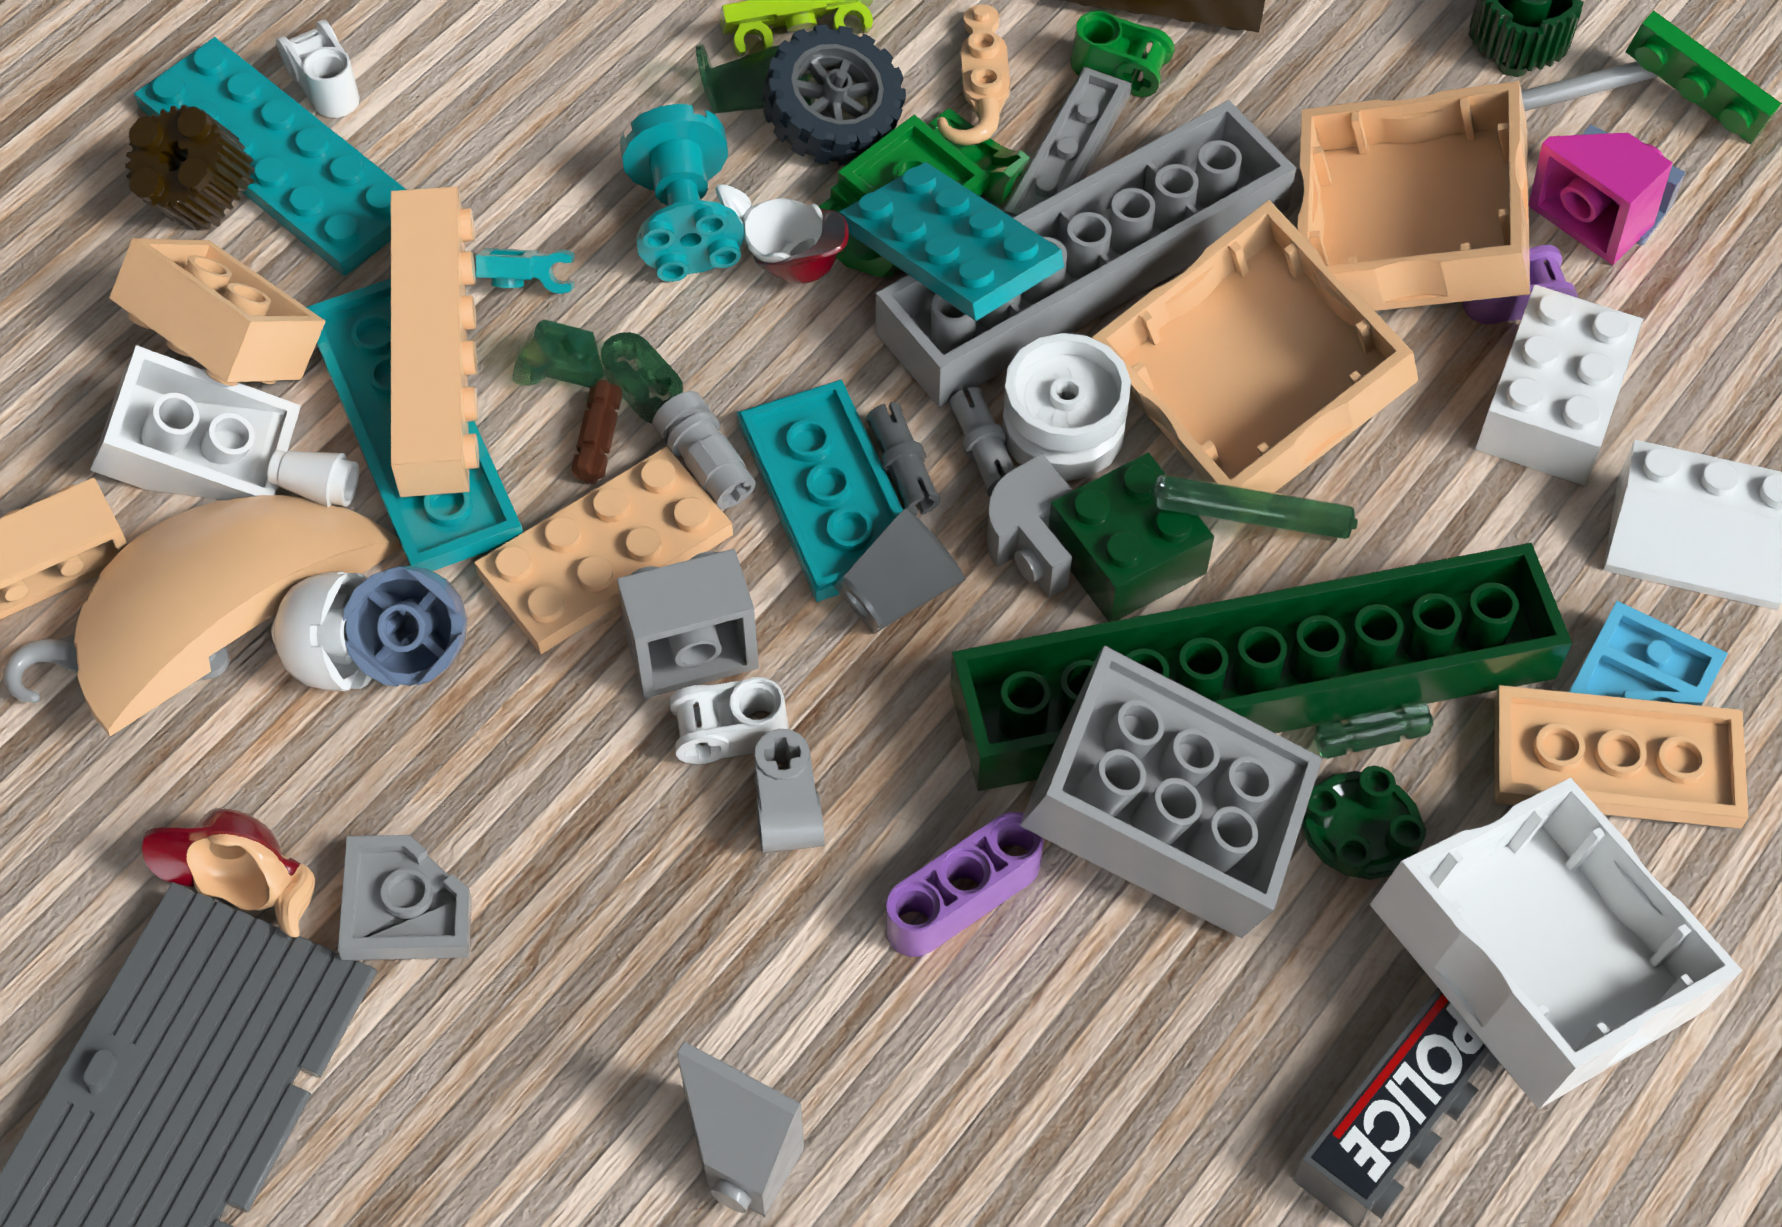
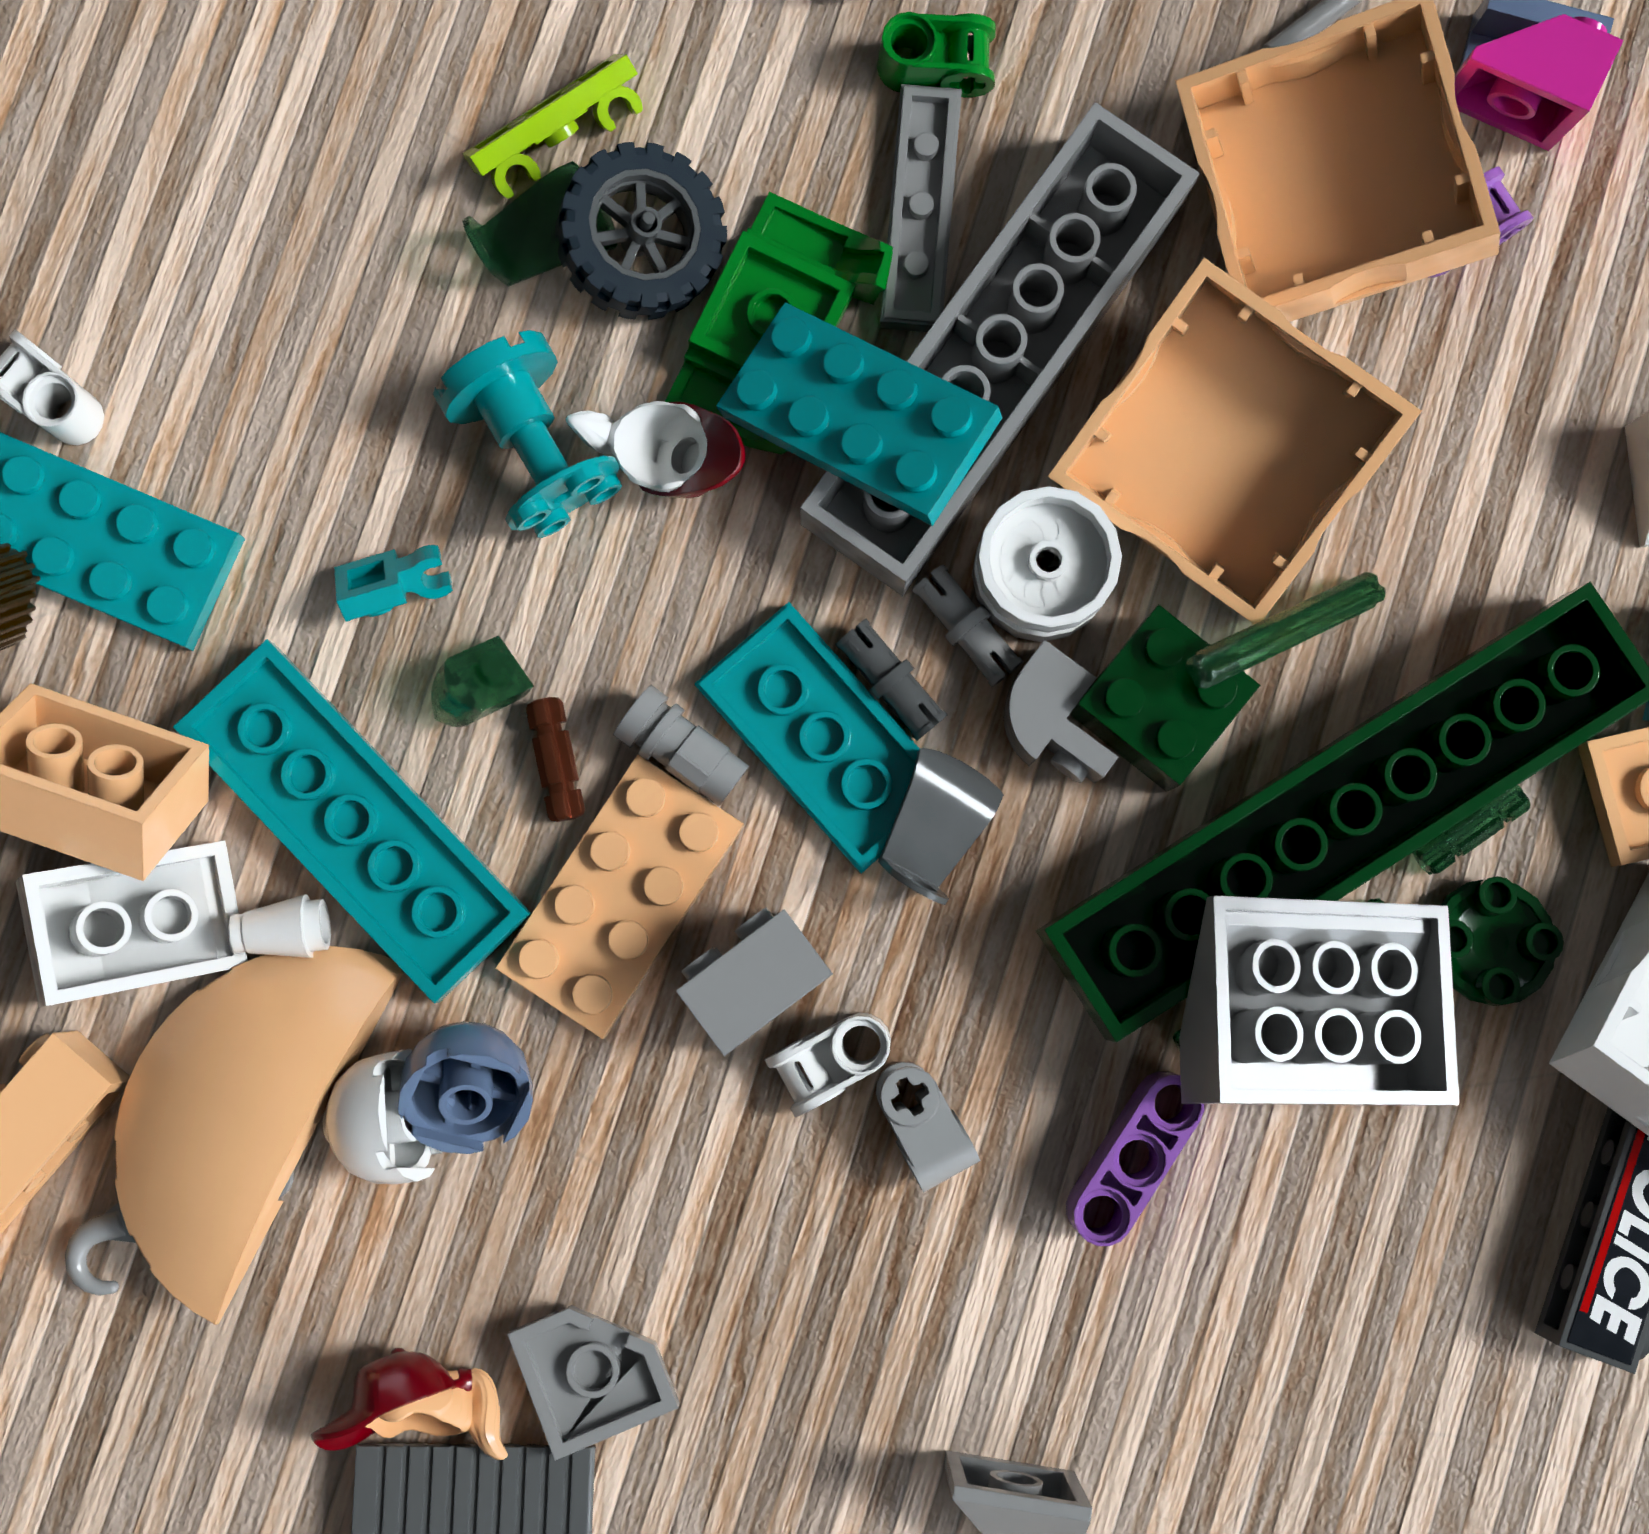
camera: 20 degrees left, 25 degrees up
(430, 343) = (335, 730): light nougat brick -> none
(651, 371) = (583, 660): clear green beam -> none
(983, 76) = (793, 135): light nougat piece -> none
(1559, 385) = (1548, 344): white brick -> none

